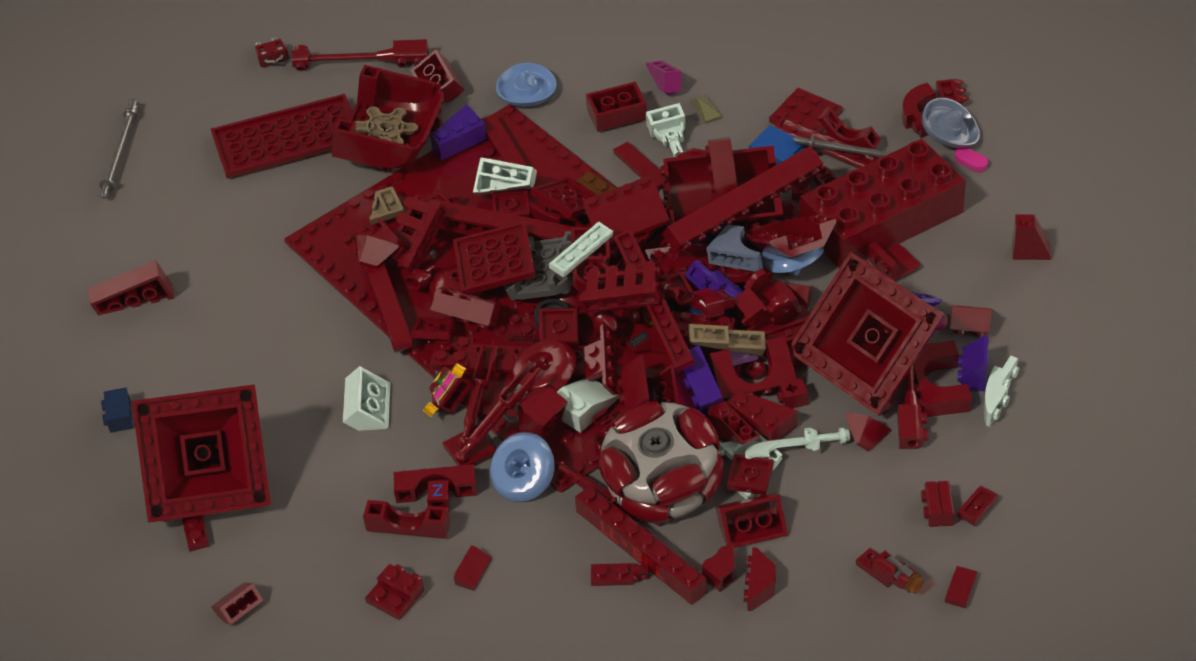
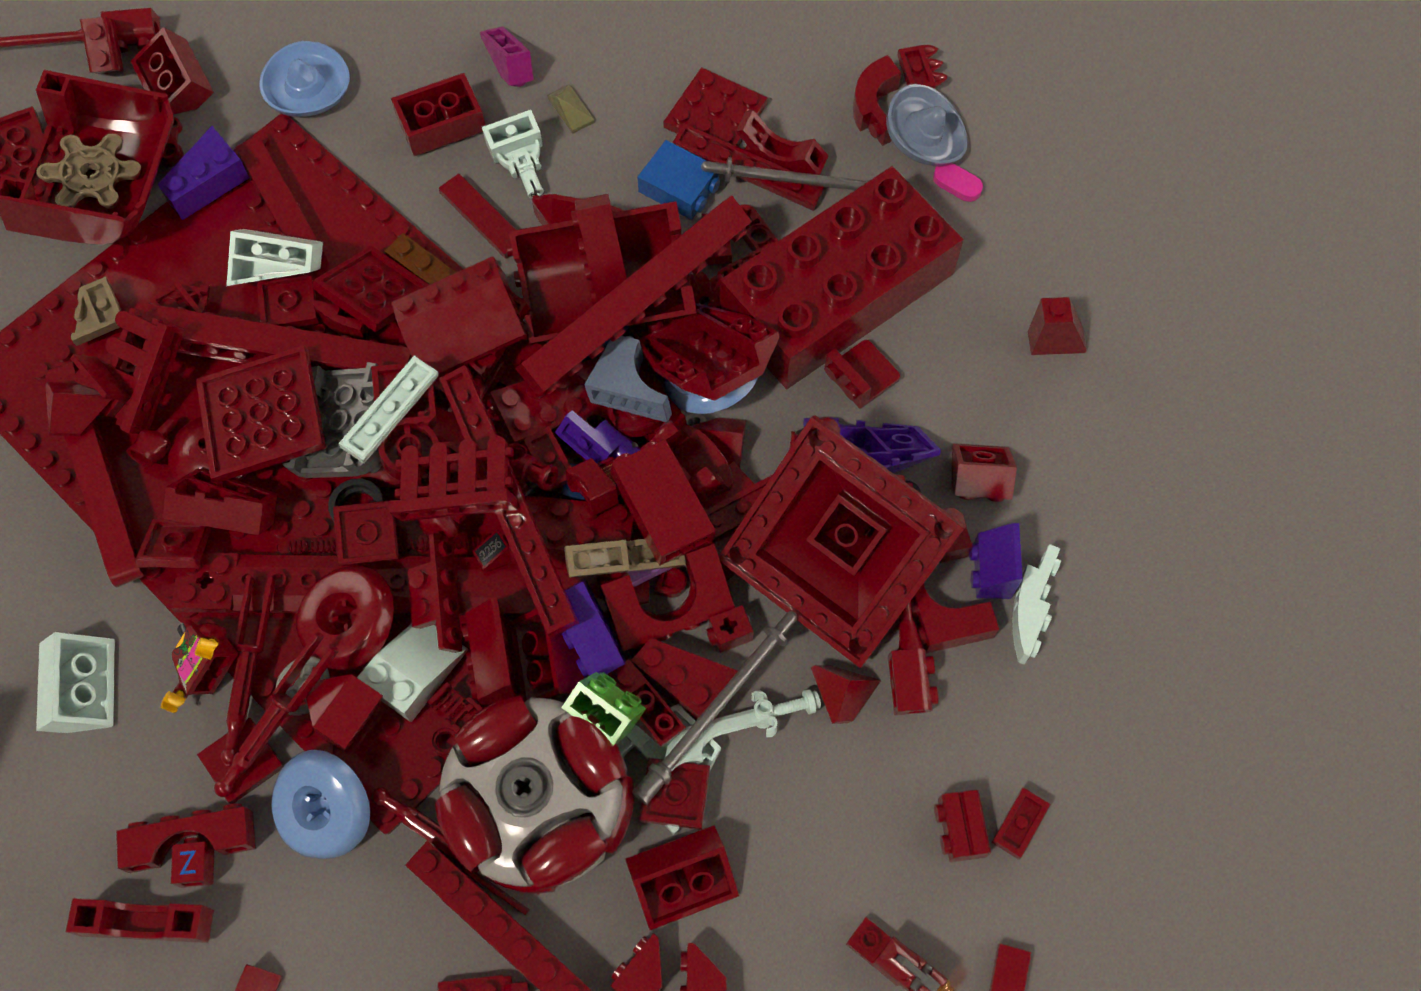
camera: 10 degrees left, 20 degrees up
(393, 56) = (102, 45): none -> dark red brick
(714, 411) = (611, 705): none -> bright green brick
(741, 456) = (661, 772): none -> flat silver bar
(753, 308) = (662, 501): none -> dark red brick

